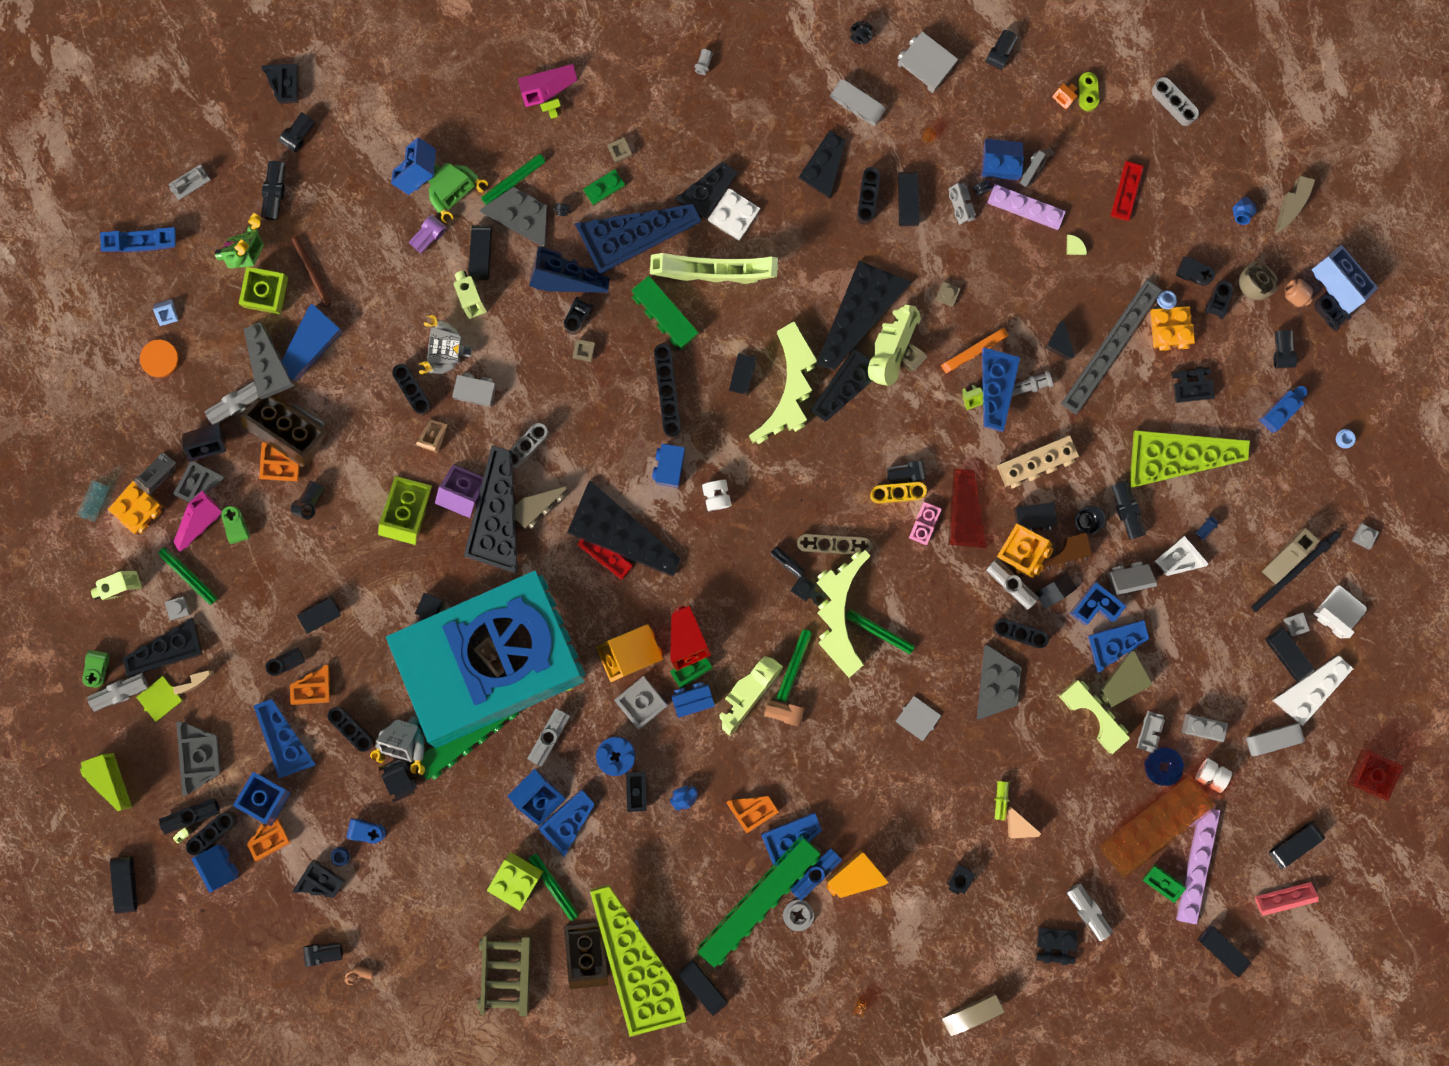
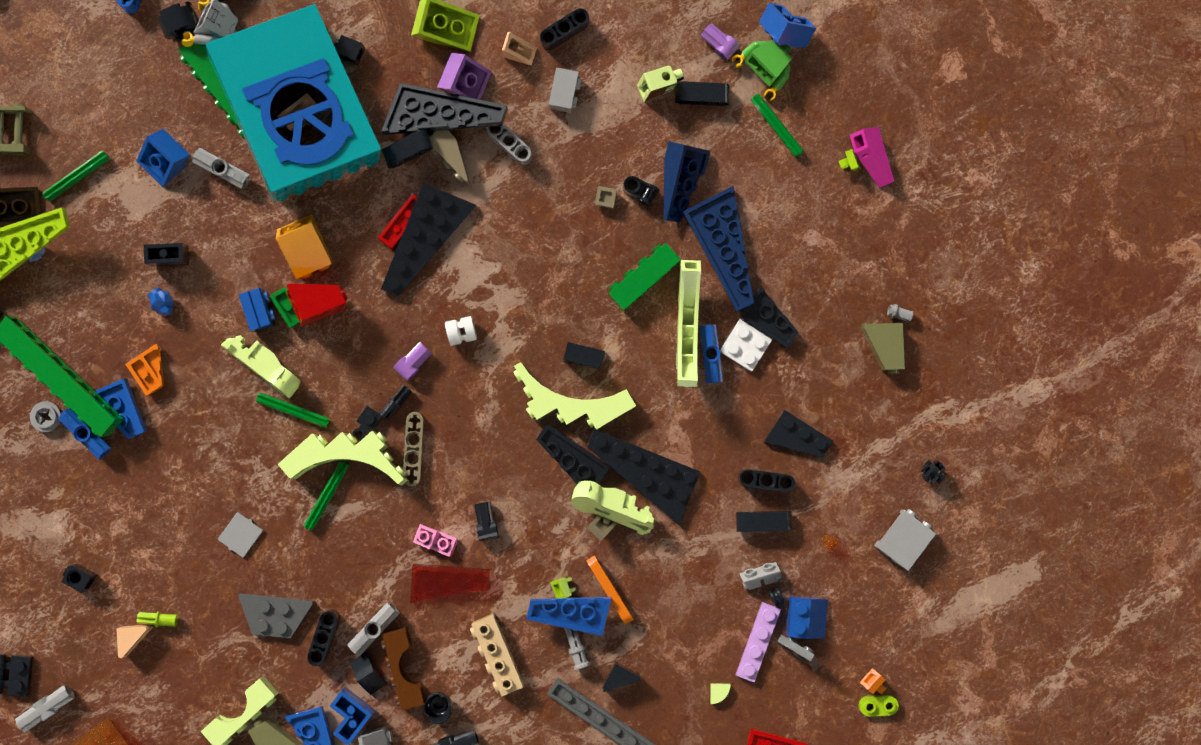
camera: 90 degrees right, 0 degrees up
(444, 347) = (606, 59): torso -> none
(515, 881) = (79, 137): lime brick -> none
(520, 214) = (741, 133): dark grey wing -> none
(532, 546) = (407, 149): none -> black beam
(562, 209) = (747, 174): black plate -> none
(566, 821) = (139, 187): blue wing -> none
(604, 187) = (770, 215): green plate -> none
(615, 767) = (212, 236): blue brick -> none
(619, 150) = (808, 230): dark tan plate -> none
(641, 702) = (255, 259): light grey plate -> none
(663, 382) = (556, 278): black beam -> none
(669, 465) = (488, 282): blue brick -> none
(736, 75) = (887, 345): none -> olive slope
(750, 547) = (410, 364): none -> medium lavender piece
(755, 246) = (712, 367): none -> blue piece
(788, 713) = (244, 405): nougat piece -> none
(855, 876) = (79, 472): light orange slope -> none
(858, 102) = (862, 469): light grey beam -> none
(907, 492) = (464, 522): yellow beam -> none
(947, 294) = (667, 562): dark tan plate -> none
(1000, 52) = (916, 614): black piece -> none
(1026, 550) = (403, 642): light orange plate -> none
(1036, 516) = (441, 652): black brick -> none

